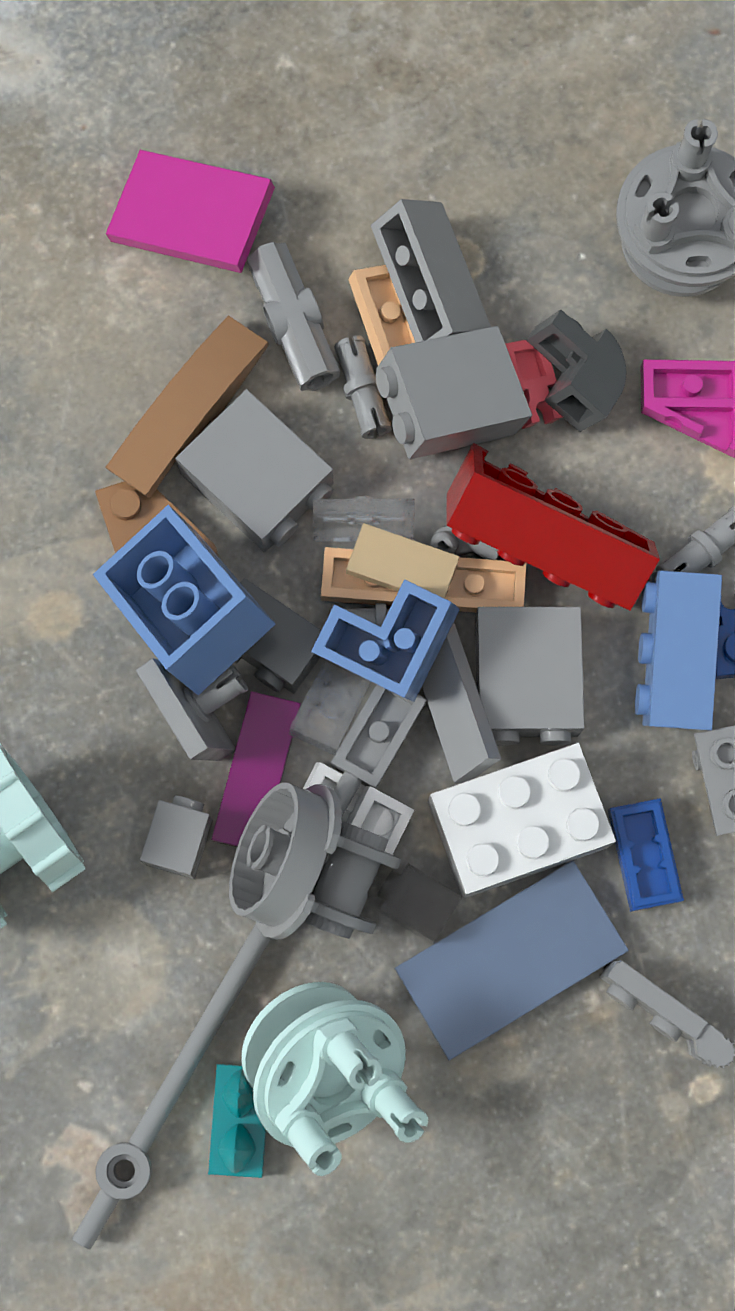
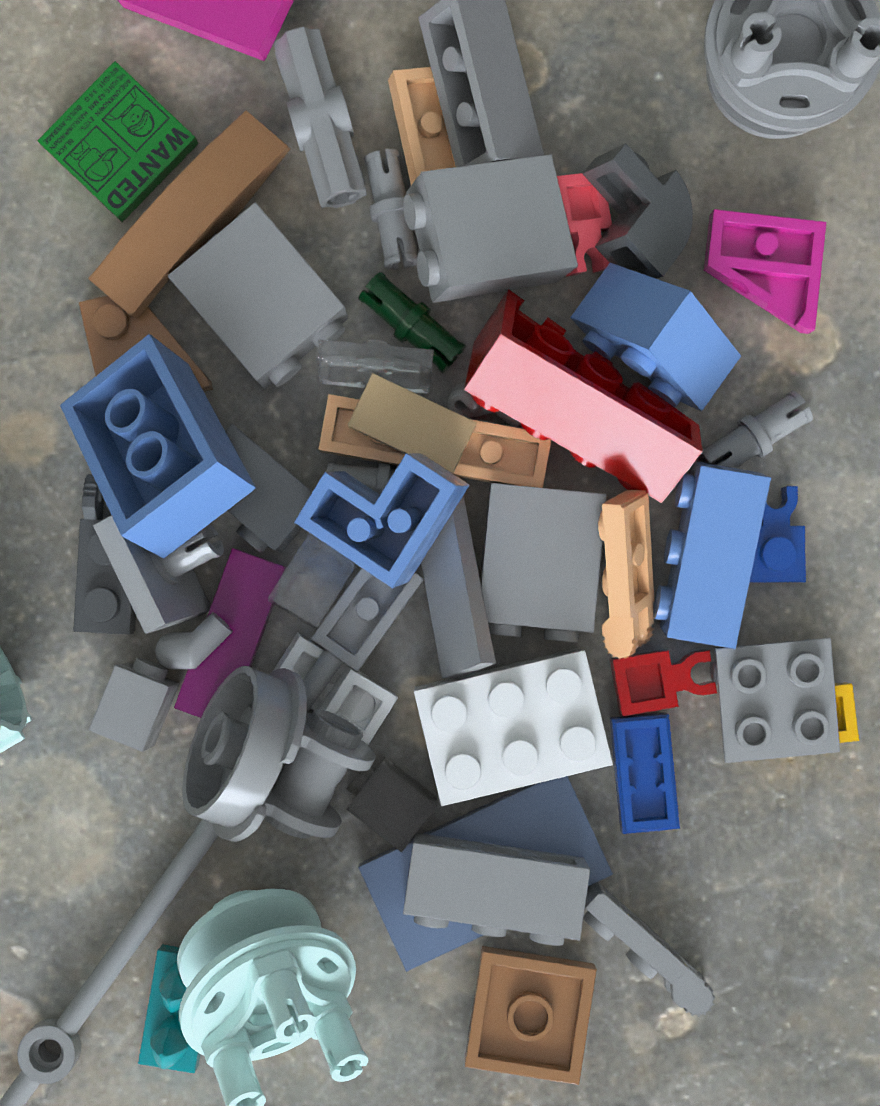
camera: 10 degrees right, 10 degrees up
(117, 353) = (118, 141): none -> green tile
(137, 723) = (99, 596): none -> dark grey hinge
(222, 783) = (190, 649): none -> light grey arm
(390, 478) = (411, 321): none -> dark green pin
(524, 967) = (496, 889): none -> light grey brick
(568, 1089) = (530, 1015): none -> medium nougat plate
(608, 675) = (628, 572): none -> light nougat hinge
(609, 464) = (657, 334): none -> medium blue brick
(641, 772) = (651, 681): none -> red plate

